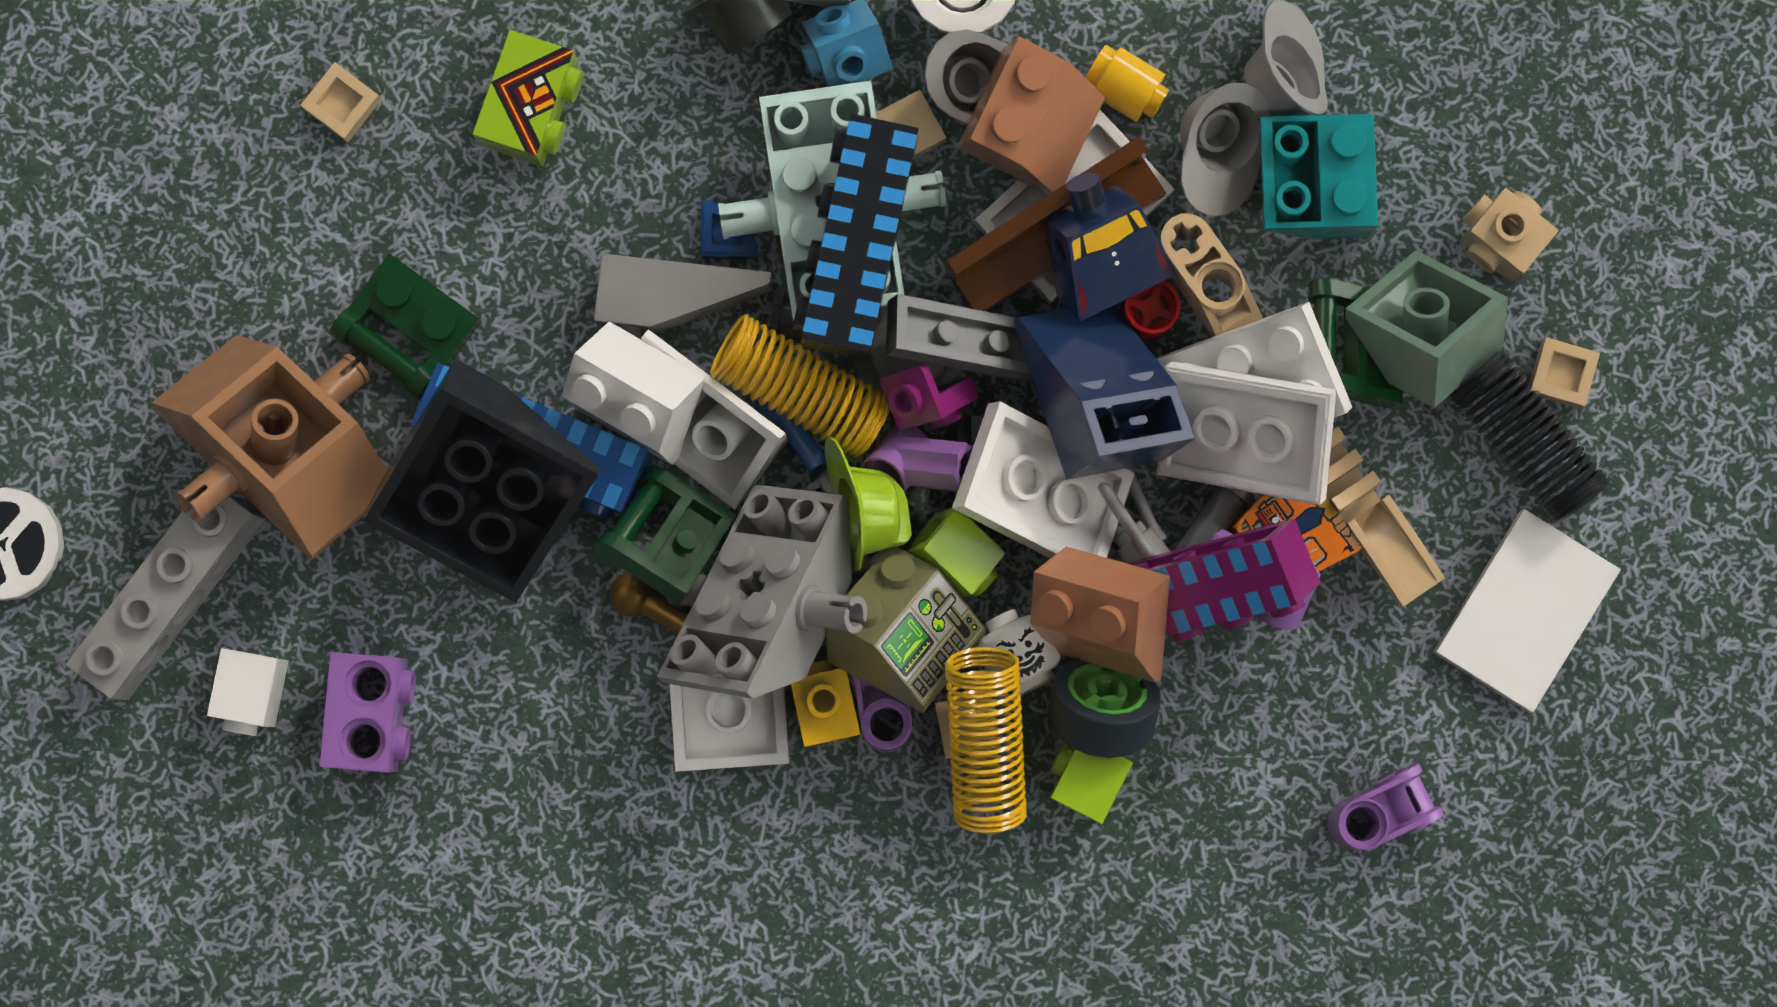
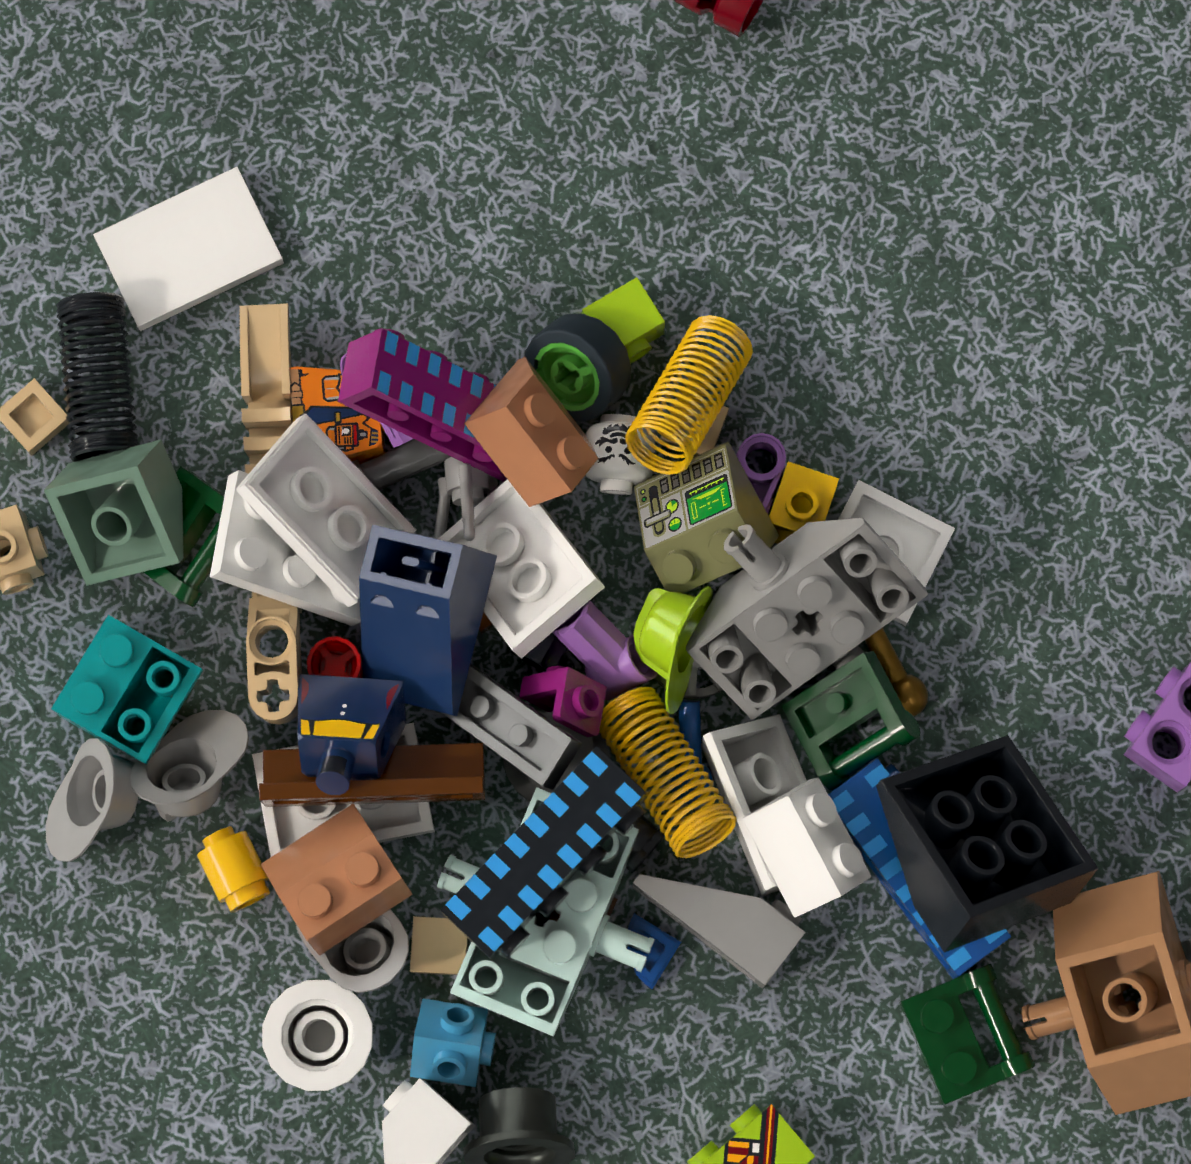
camera: 145 degrees left, 5 degrees down
(959, 551) = (620, 562): lime brick -> none
(1394, 808) = (393, 159): medium lavender piece -> none

